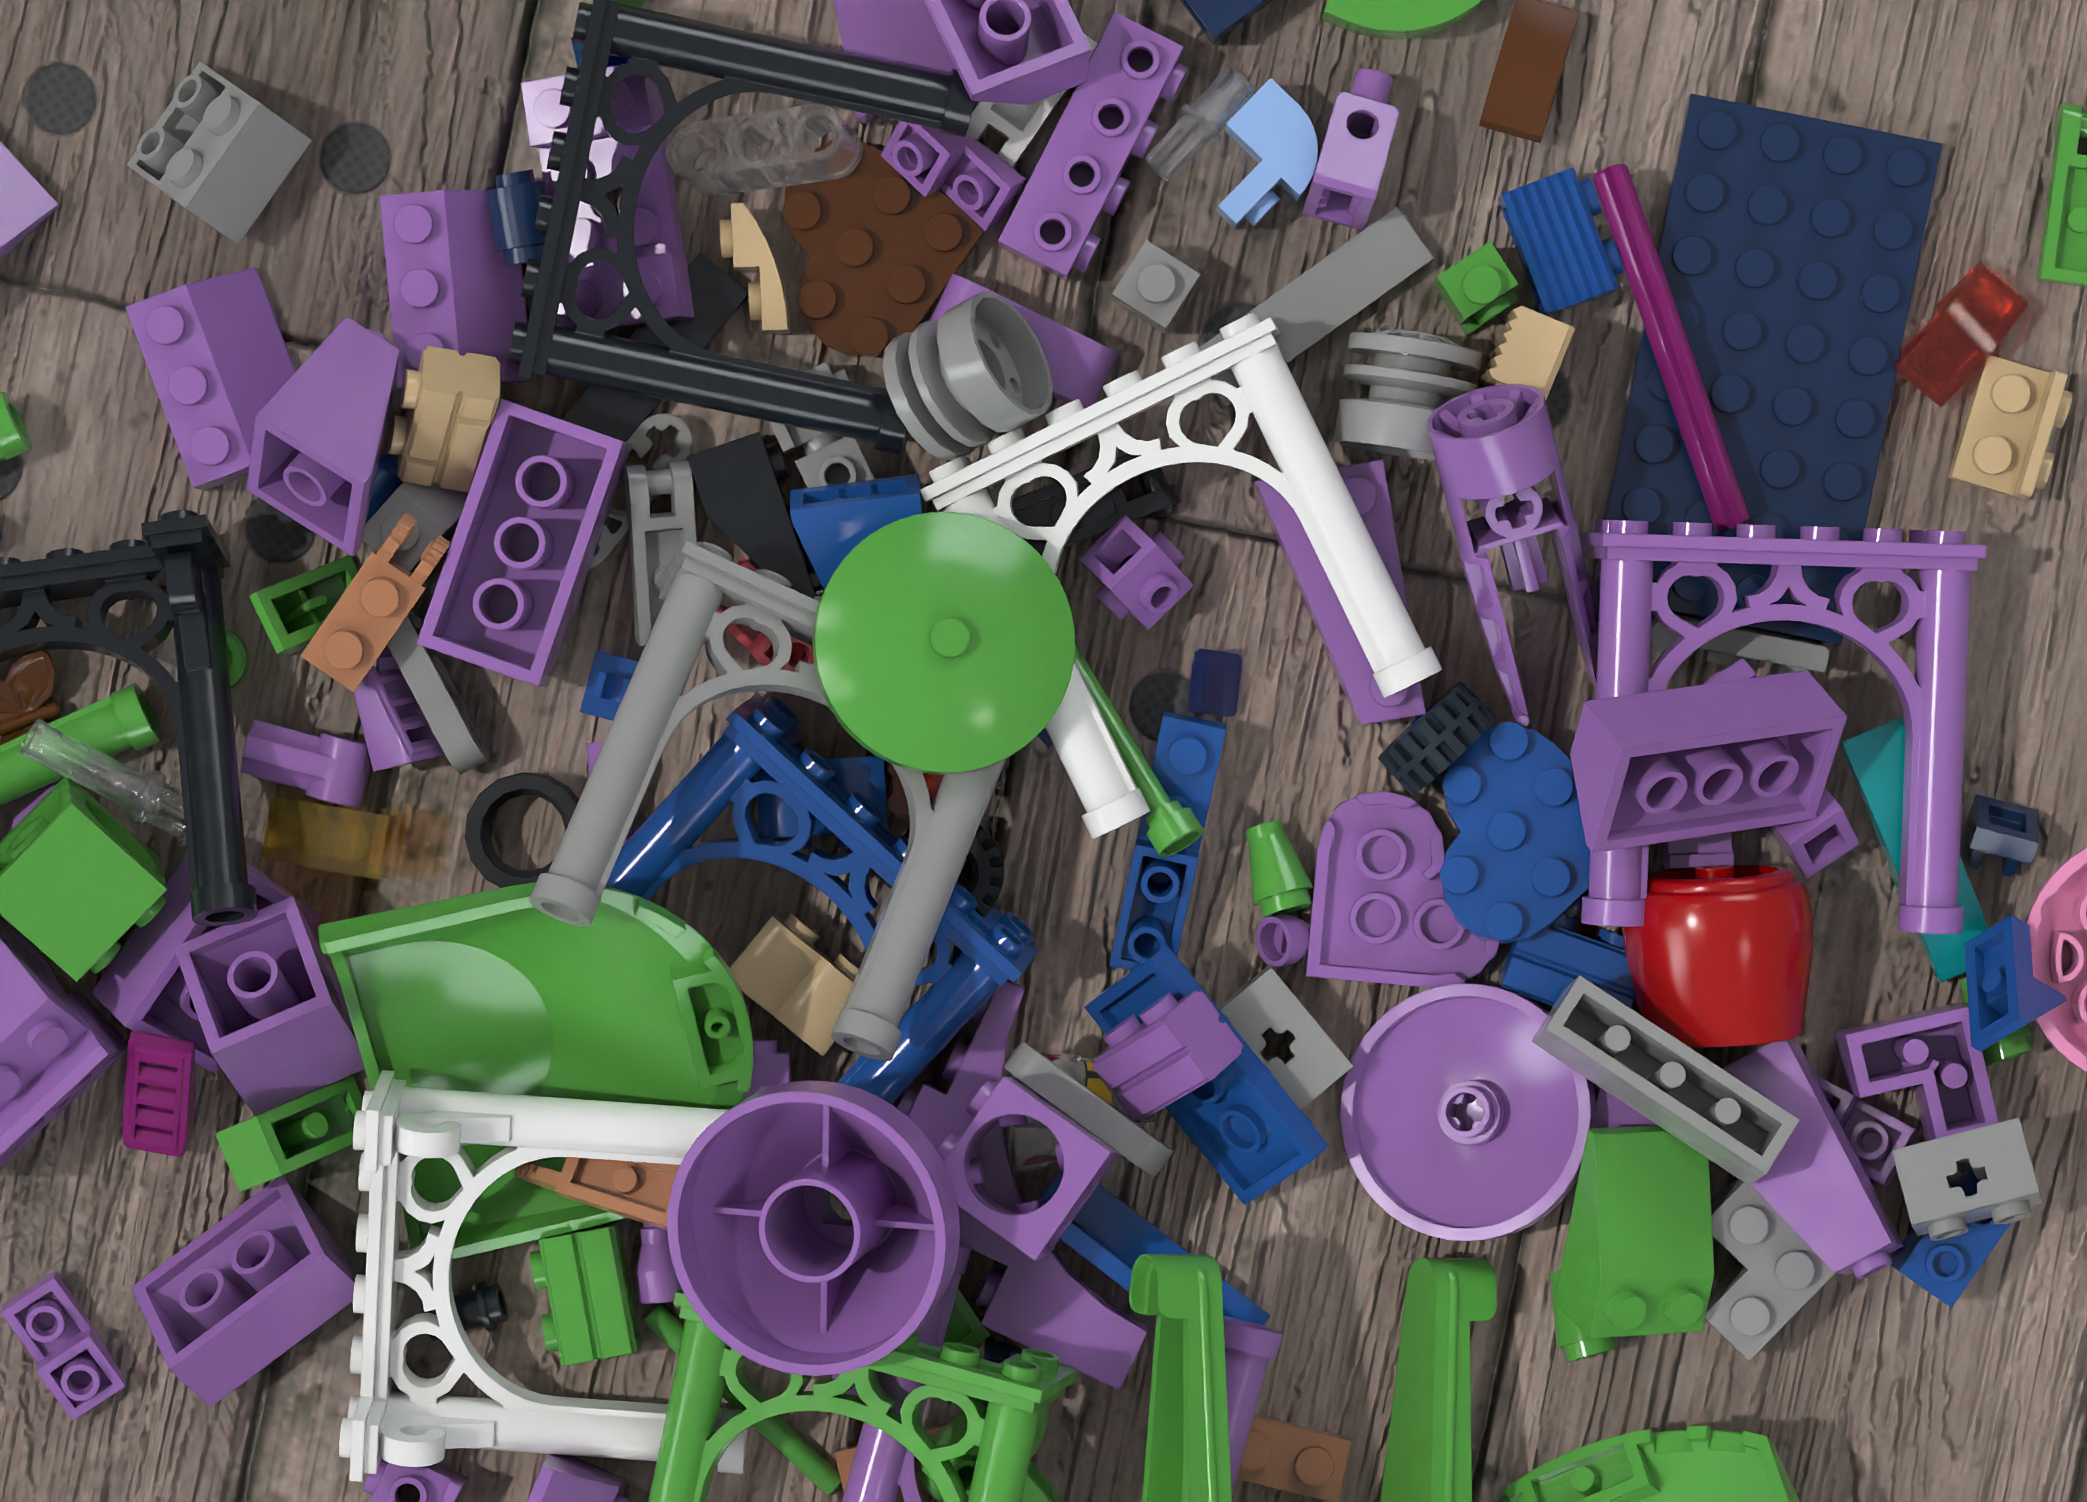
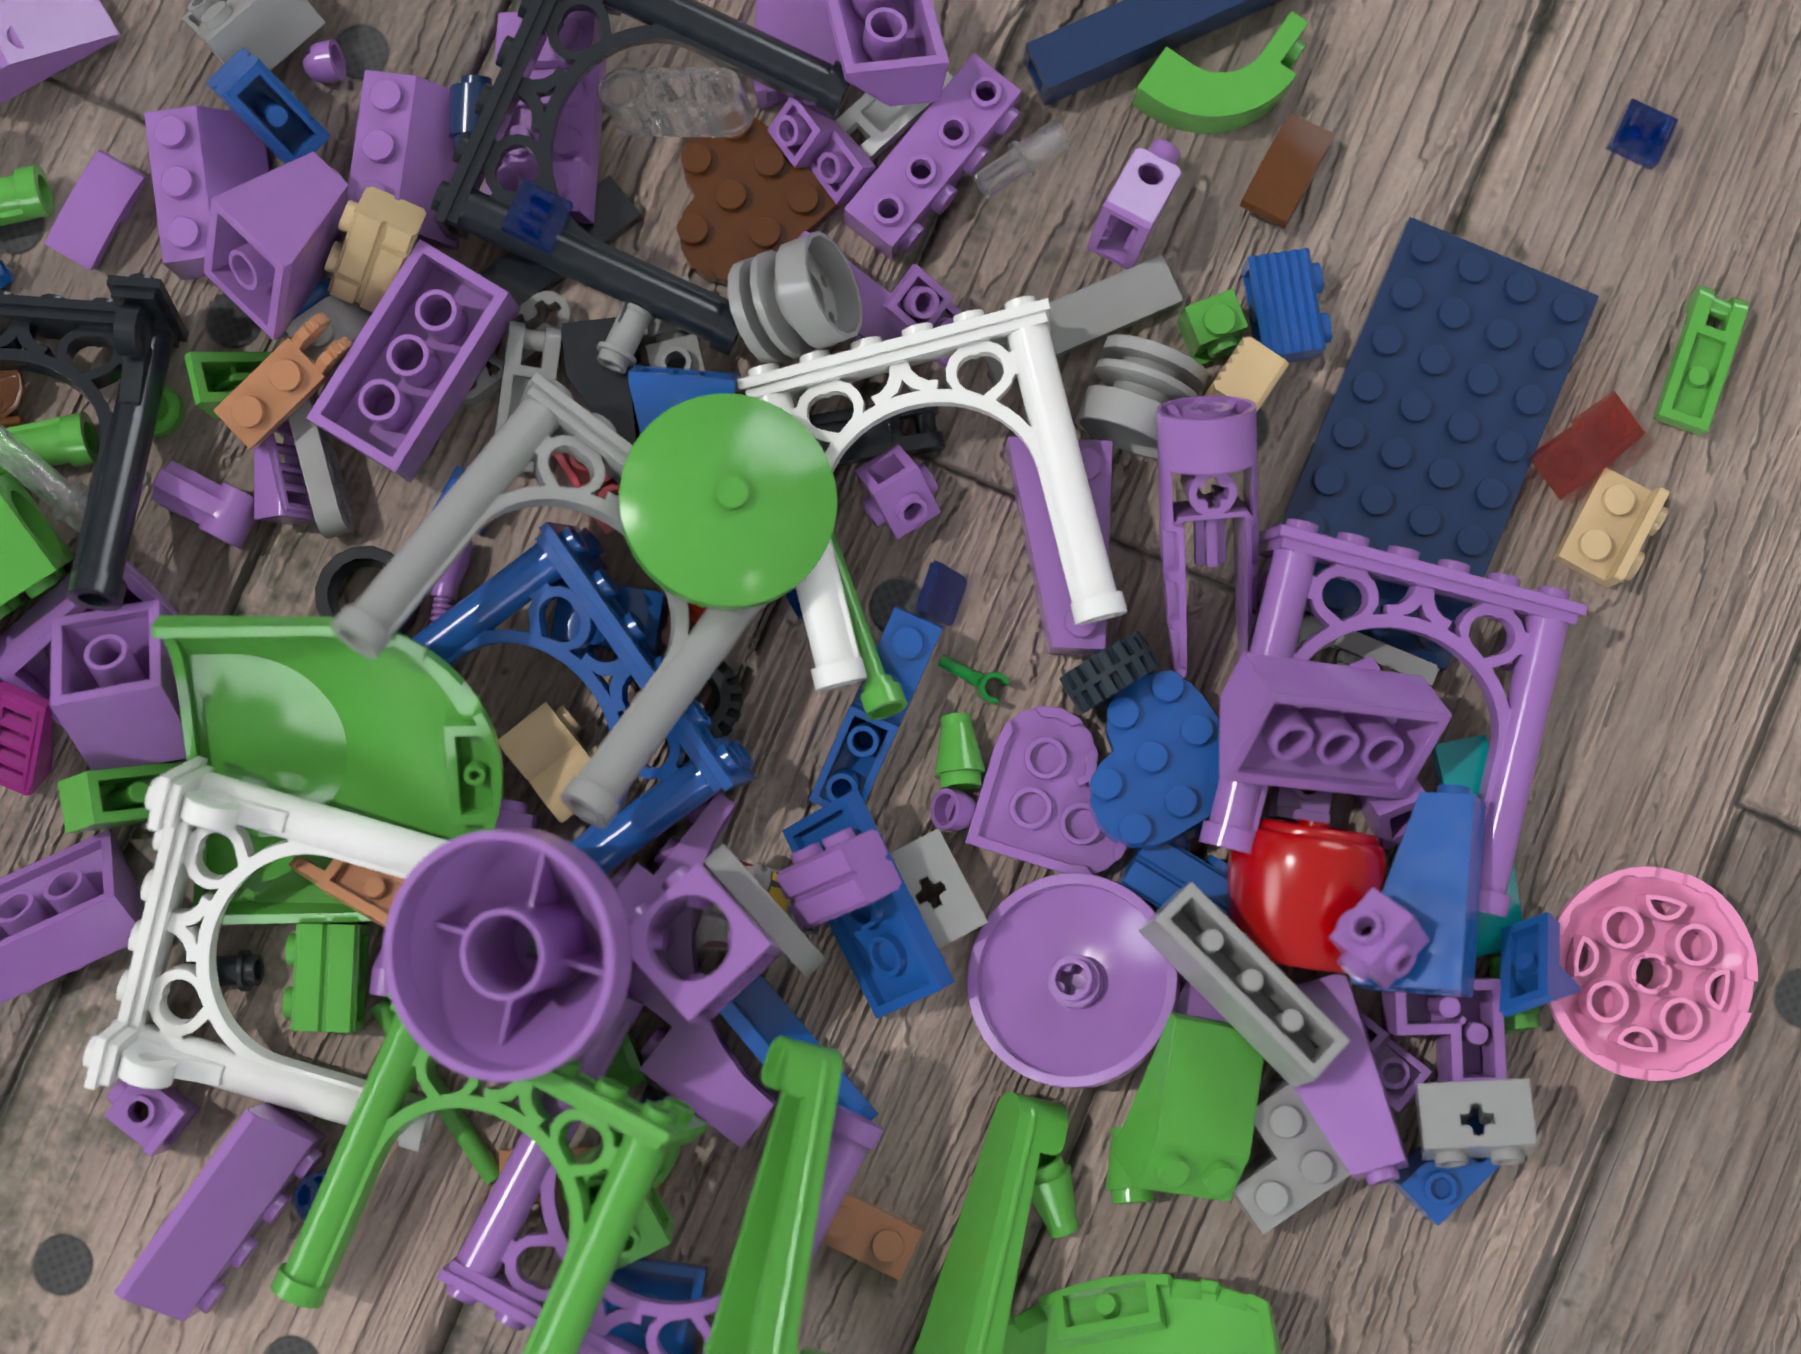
camera: 10 degrees right, 5 degrees down
(86, 431) = (95, 209): none -> medium lavender slope
(273, 269) = (267, 107): none -> blue brick
(318, 185) = (325, 62): none -> medium lavender hinge
(329, 837) = (213, 567): clear yellow slope -> none
(640, 347) = (537, 216): none -> clear blue tile
(751, 252) = (650, 187): tan slope -> none
(770, 462) = (624, 337): none -> light grey pin
(1122, 342) = (919, 301): none -> medium lavender slope
(1155, 286) = (962, 270): light grey brick -> none
(1273, 773) = (973, 677): none -> green hand
(1283, 145) = (1080, 184): light blue brick -> none
(1497, 1366) = (1055, 1196): none -> bright green cone
(1671, 347) = (1357, 400): magenta axle -> none
(1808, 998) = (1378, 940): none -> medium lavender brick
(1866, 935) = (1440, 885): none -> blue slope
(2002, 831) = (1547, 844): dark blue tile -> none

